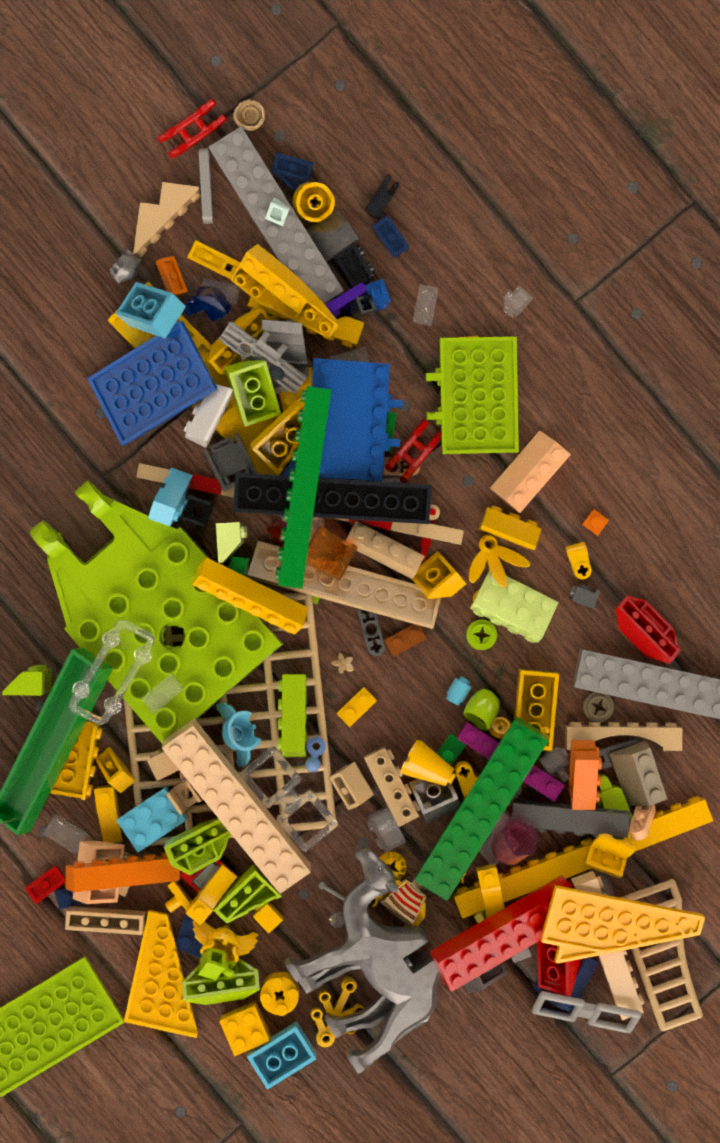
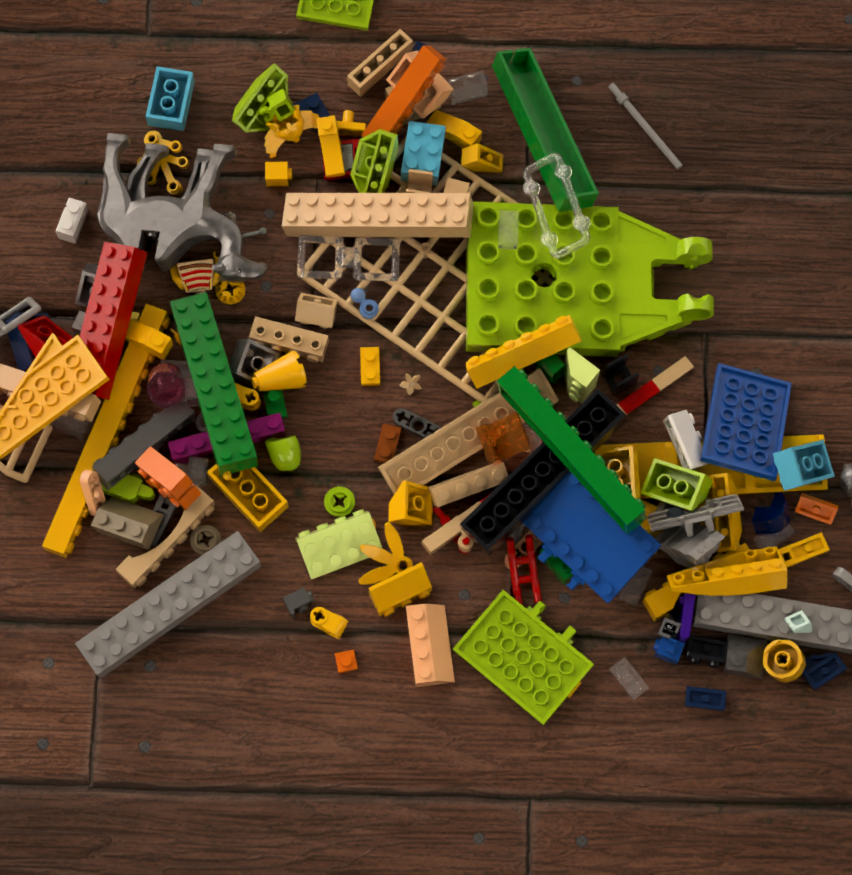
camera: 135 degrees right, 15 degrees down
(34, 681) = (598, 152): lime slope -> none
(46, 884) = (444, 43): red plate -> none
(79, 768) = (508, 137): yellow bracket -> none
(157, 982) = (303, 61): yellow wing -> none
(171, 499) = (645, 360): medium azure wedge -> none
(228, 459) = (638, 430): dark grey container -> none
(238, 732) = (430, 262): medium azure helmet -> none
(245, 1028) = (213, 91): yellow brick -> none
(246, 894) = (308, 168): lime wedge -> none
(280, 1004) = (214, 125): yellow brick -> none
(293, 715) = (407, 310): lime wedge -> none
(381, 198) = (742, 717): black piece -> none
(386, 829) = (260, 306): clear brick -> none
(446, 1037) = (72, 220): none -> white brick
(458, 690) = (313, 447): medium azure brick -> none
(499, 727) = (261, 452): yellow hat -> none
(516, 301) = (570, 750): clear brick -> none
(609, 854) = (91, 442): yellow bracket -> none
(647, 629) = (230, 626): red wedge -> none

